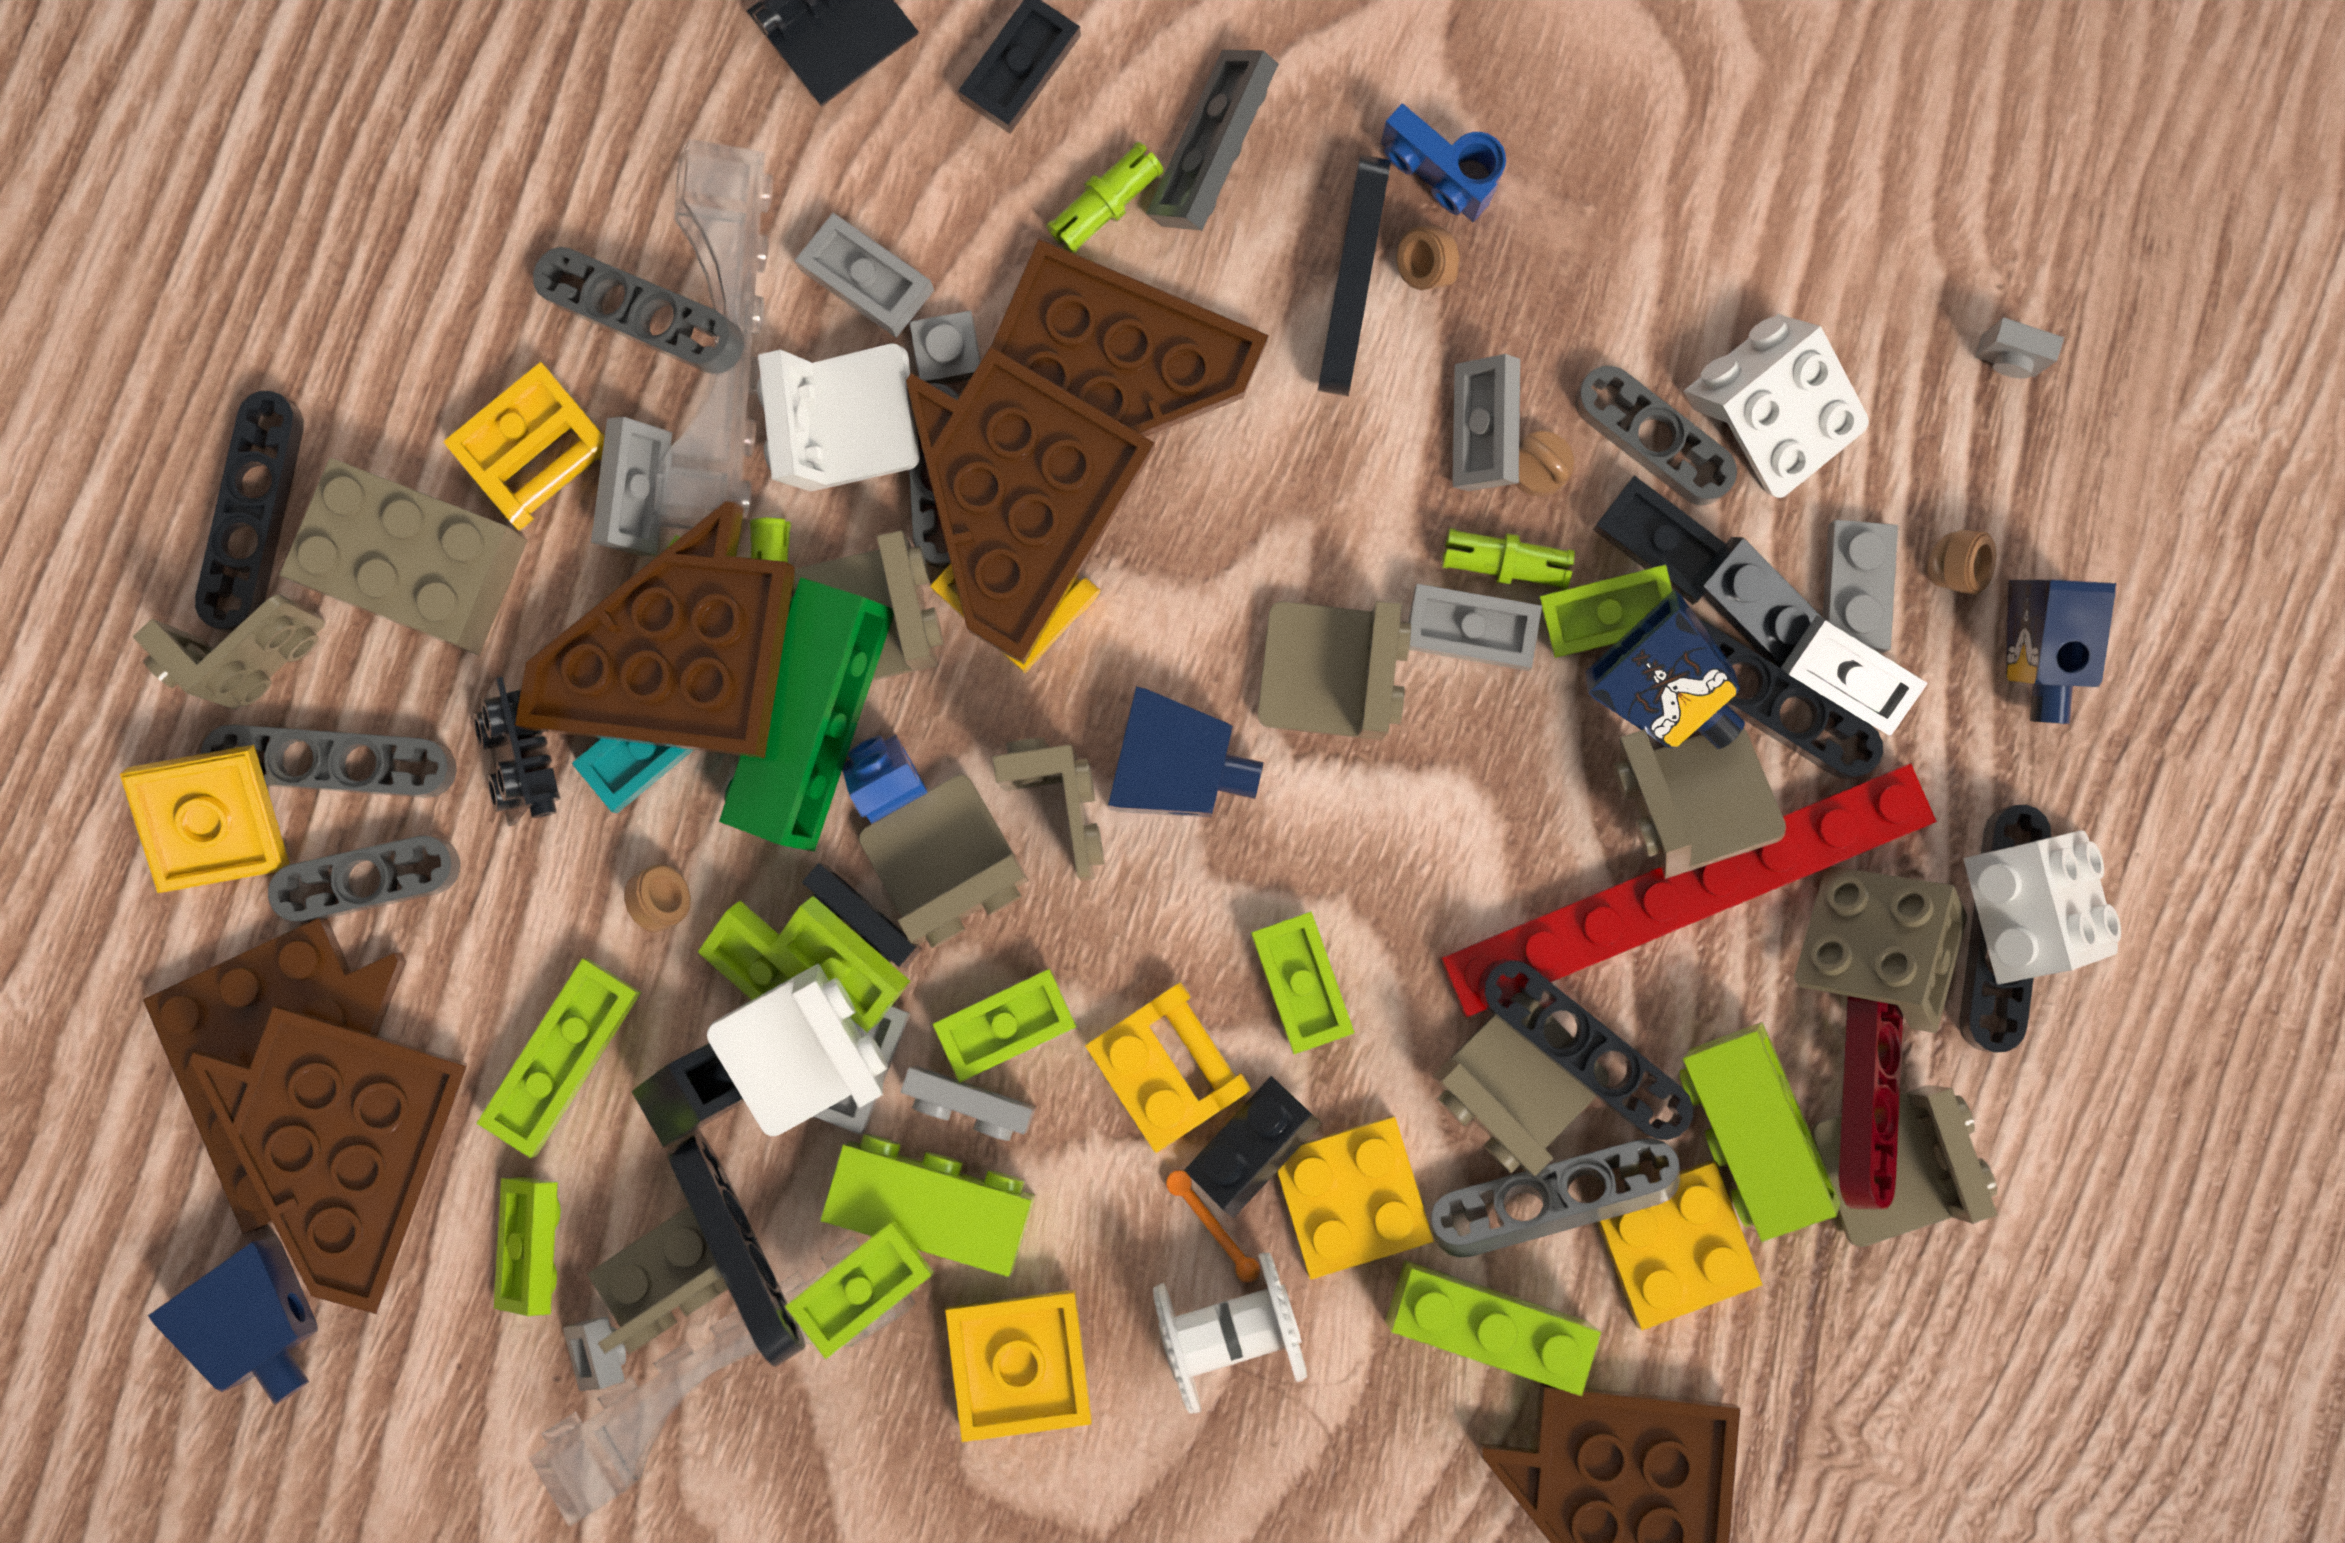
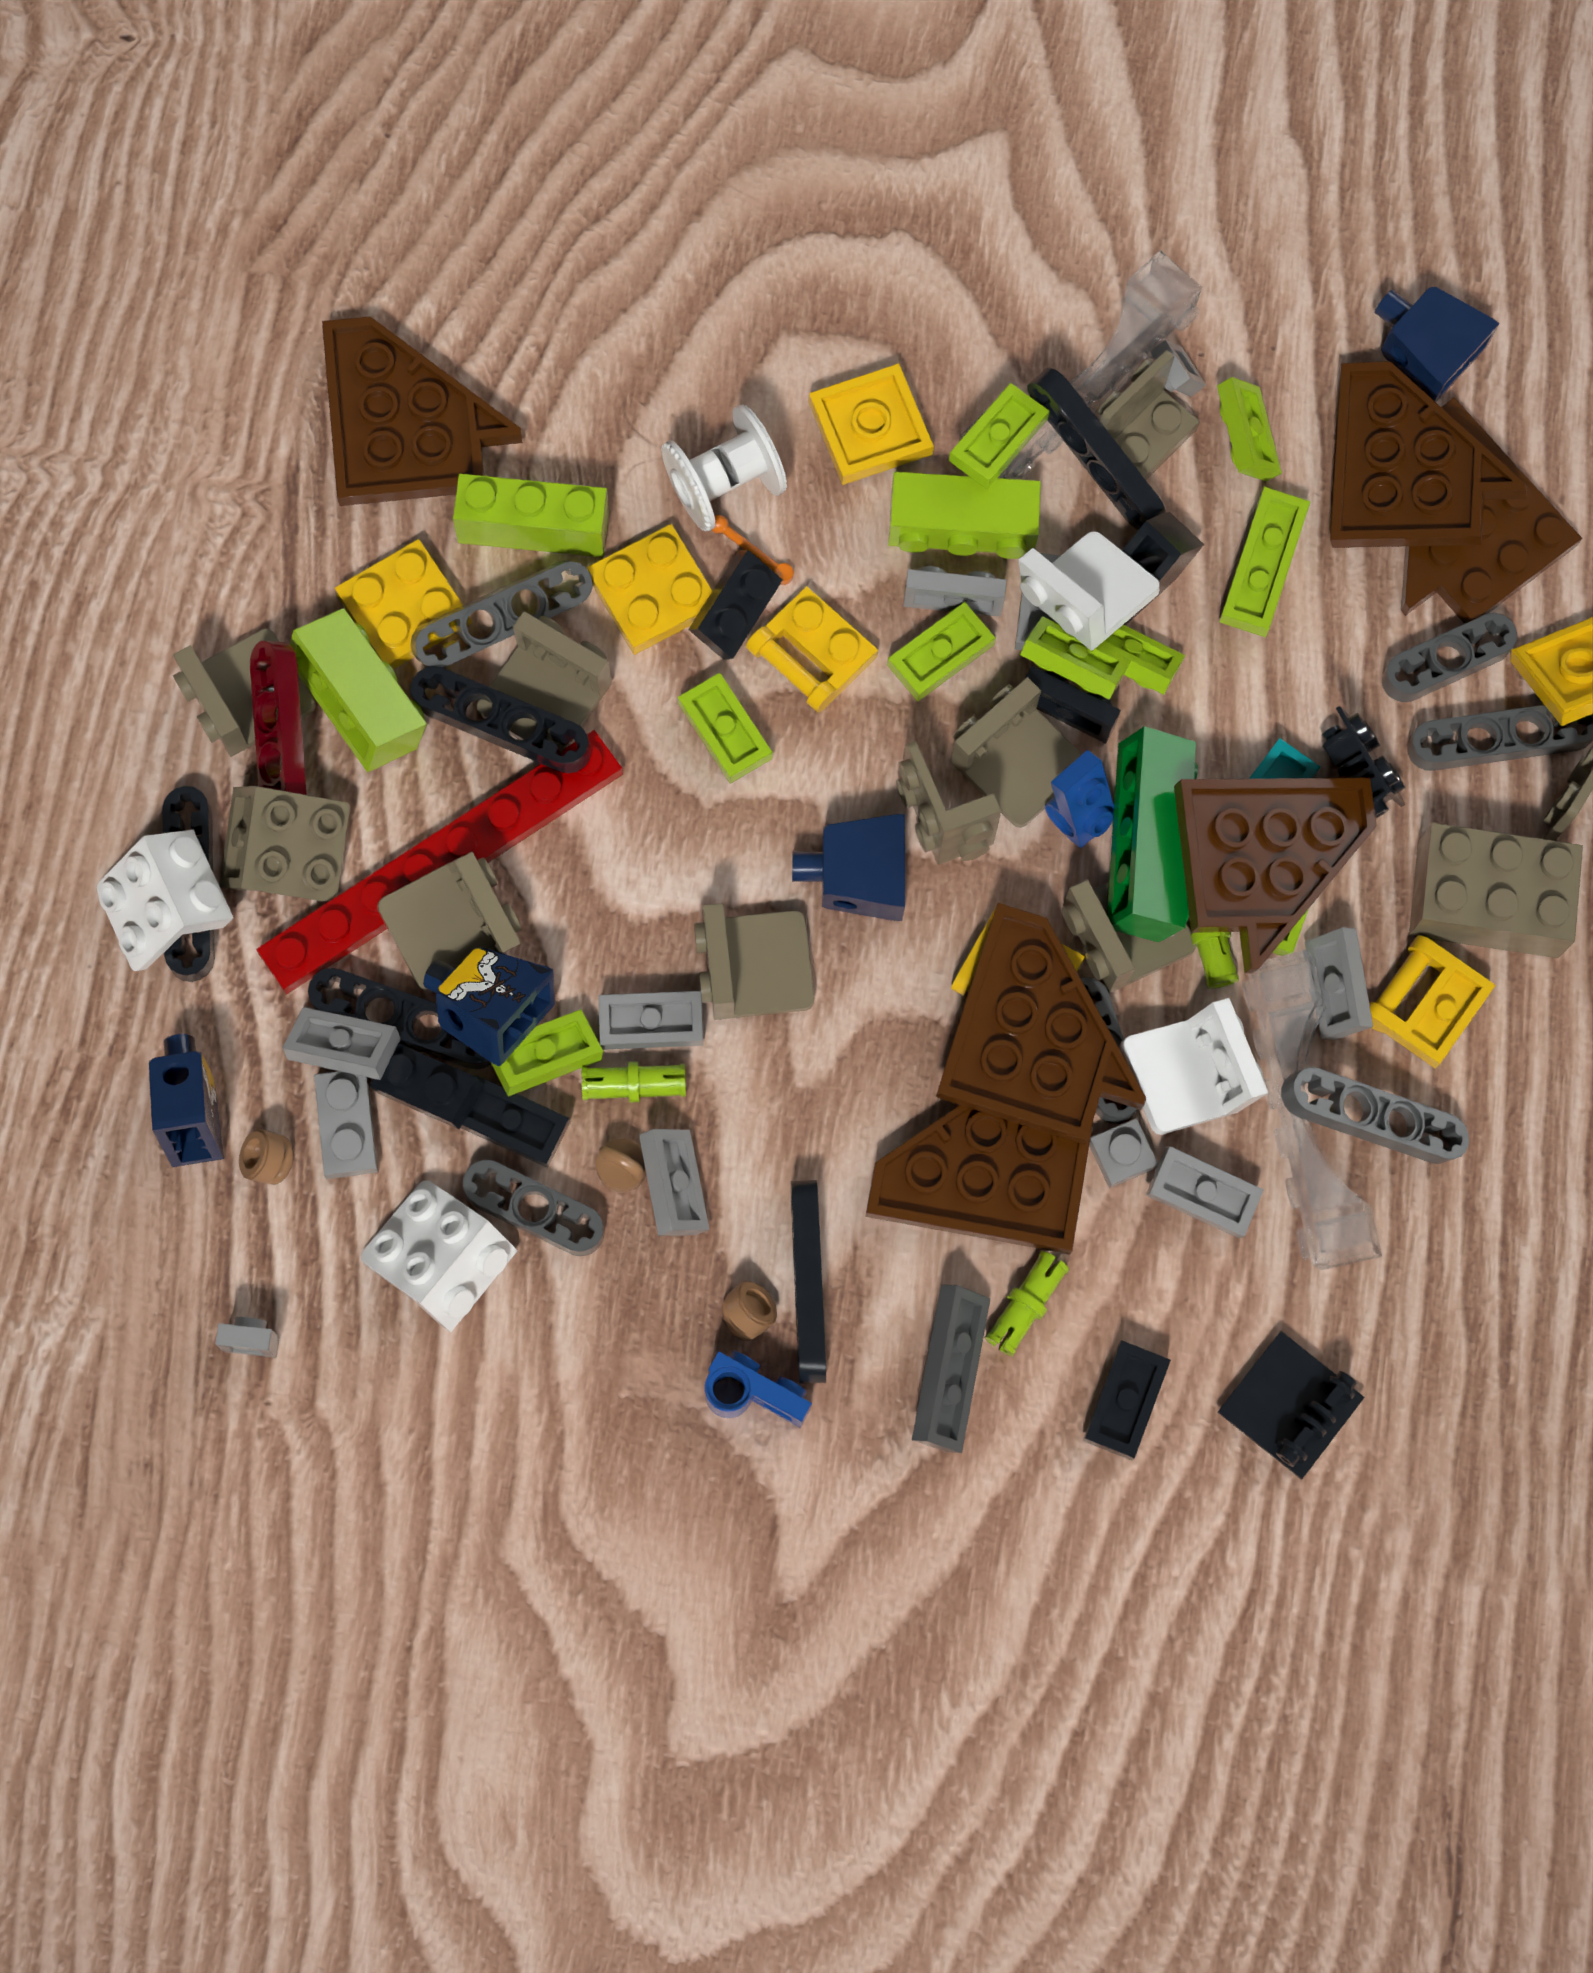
camera: 160 degrees right, 10 degrees down
(657, 898) = (1226, 685): medium nougat tile -> none

